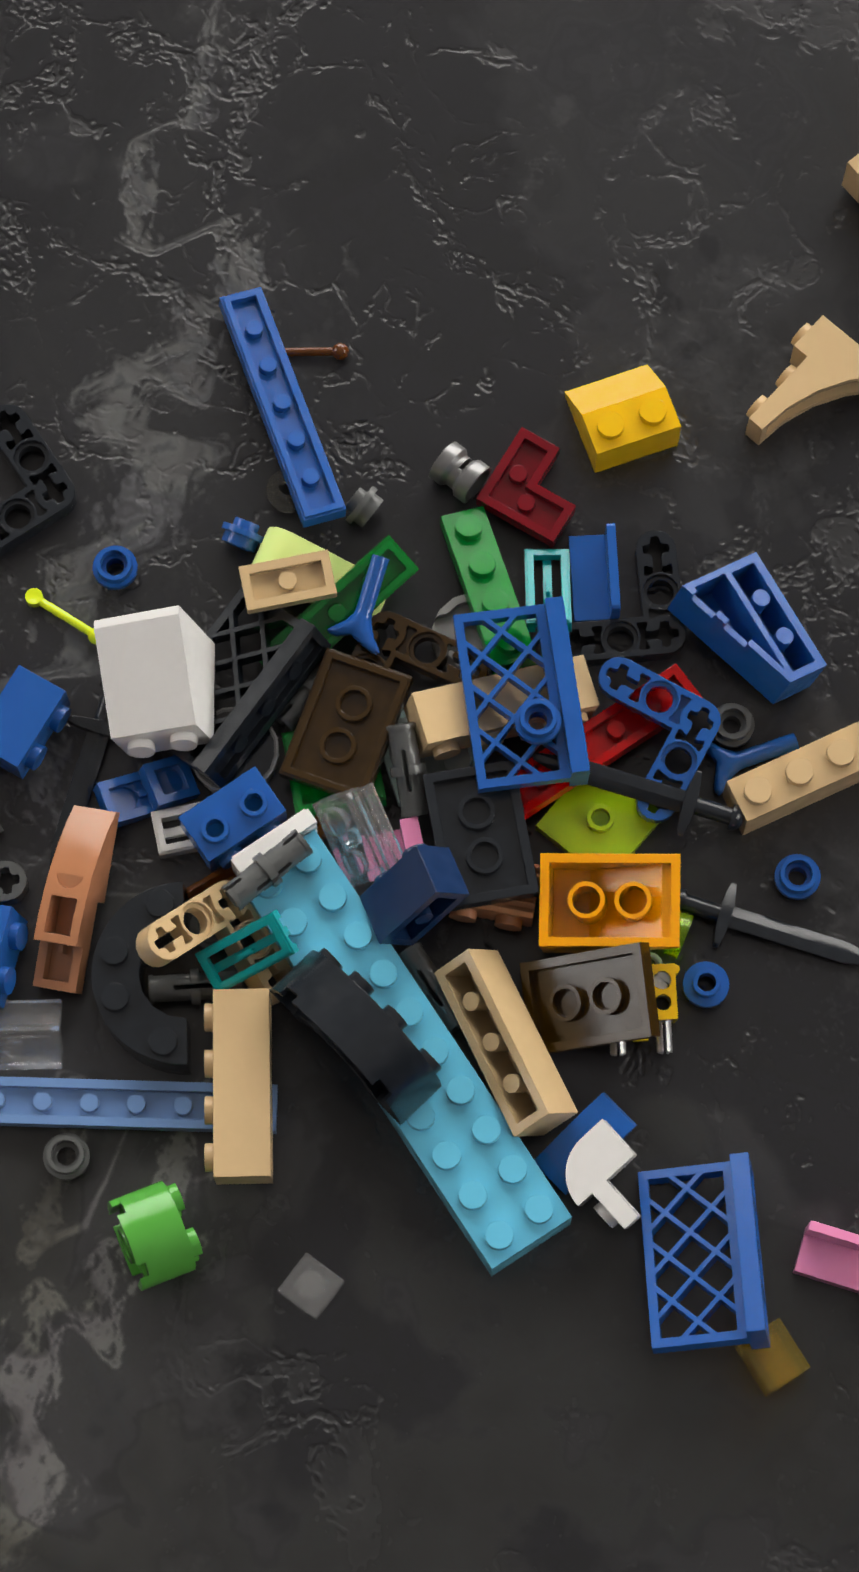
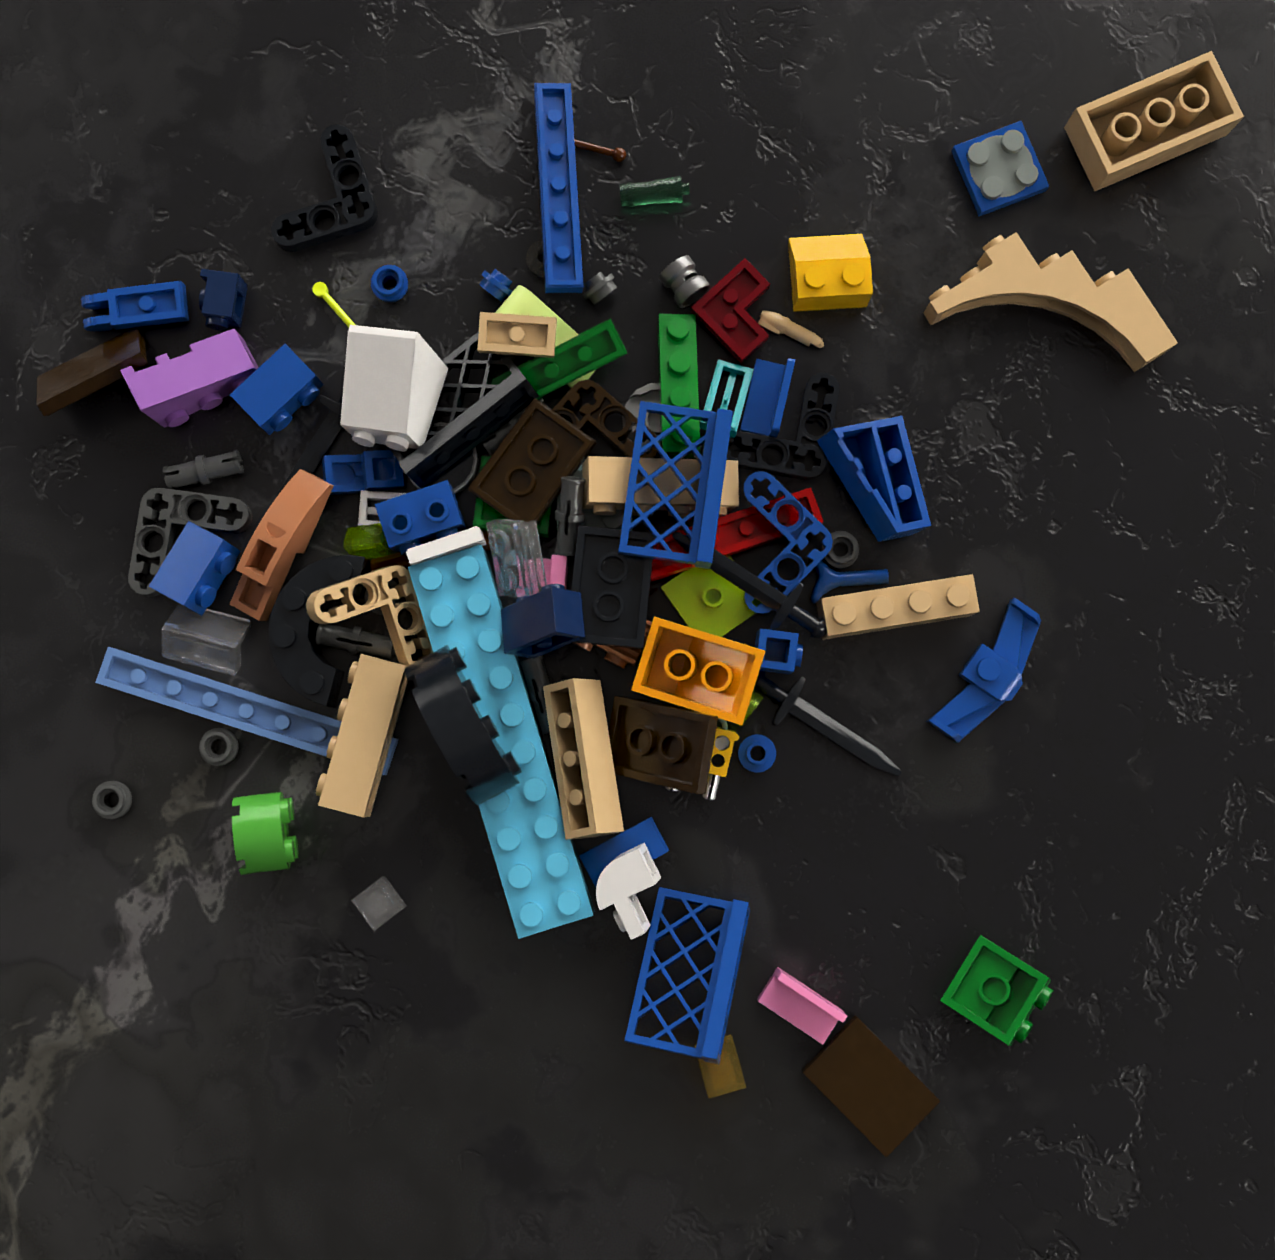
camera: 15 degrees right, 10 degrees up
(176, 866) = (366, 541): none -> clear neon green slope
(267, 869) = (430, 569): dark grey pin -> none
(279, 934) = (424, 623): teal tile -> none
(360, 622) = (567, 384): blue piece -> none
(396, 381) = (652, 192): none -> clear green piece
(544, 710) = (685, 498): blue plate -> none
(586, 491) = (782, 325): none -> tan piece
(700, 856) = (781, 650): none -> blue brick
(783, 250) = (1000, 168): none -> light grey piece
(799, 863) = (863, 678): blue plate -> none

